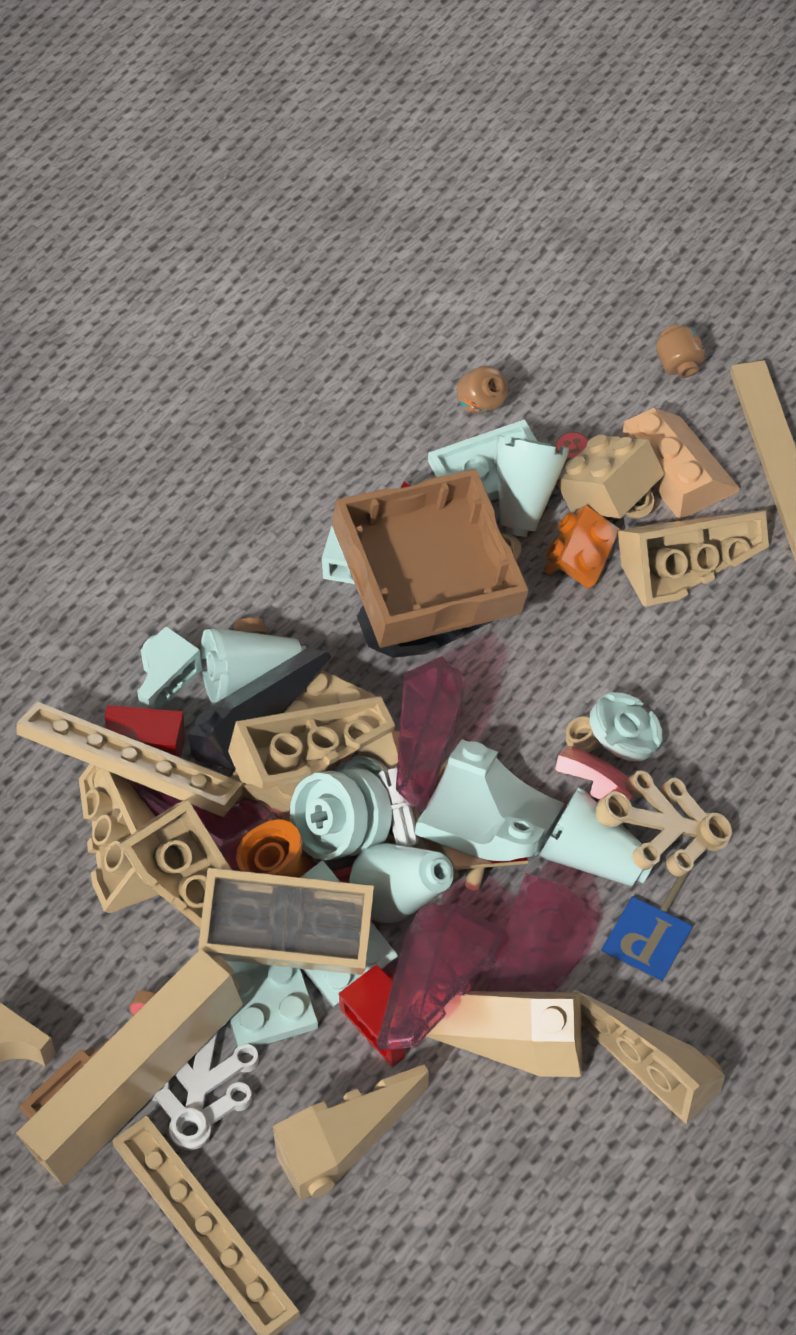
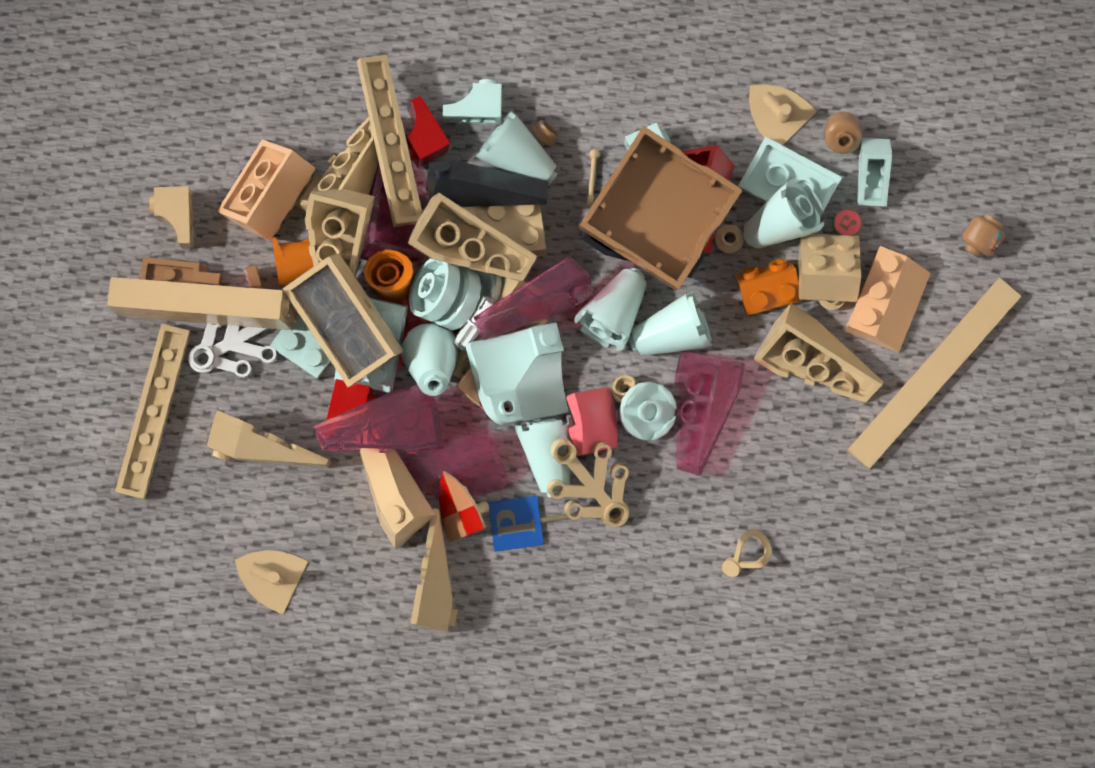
camera: 55 degrees right, 25 degrees up
(63, 926) = (266, 189): none -> light nougat slope
(164, 947) = (291, 260): none -> orange hat
(312, 608) = (594, 155): none -> tan hinge
(409, 435) = (778, 111): none -> tan shield
(495, 689) = (612, 311): none -> light aqua cone
(507, 1240) = (271, 576): none -> tan shield
(541, 389) = (874, 171): none -> light aqua arch
(558, 644) = (672, 329): none -> light aqua cone
(591, 966) = (458, 509): none -> shield
(650, 664) = (706, 399): none -> clear pink wedge

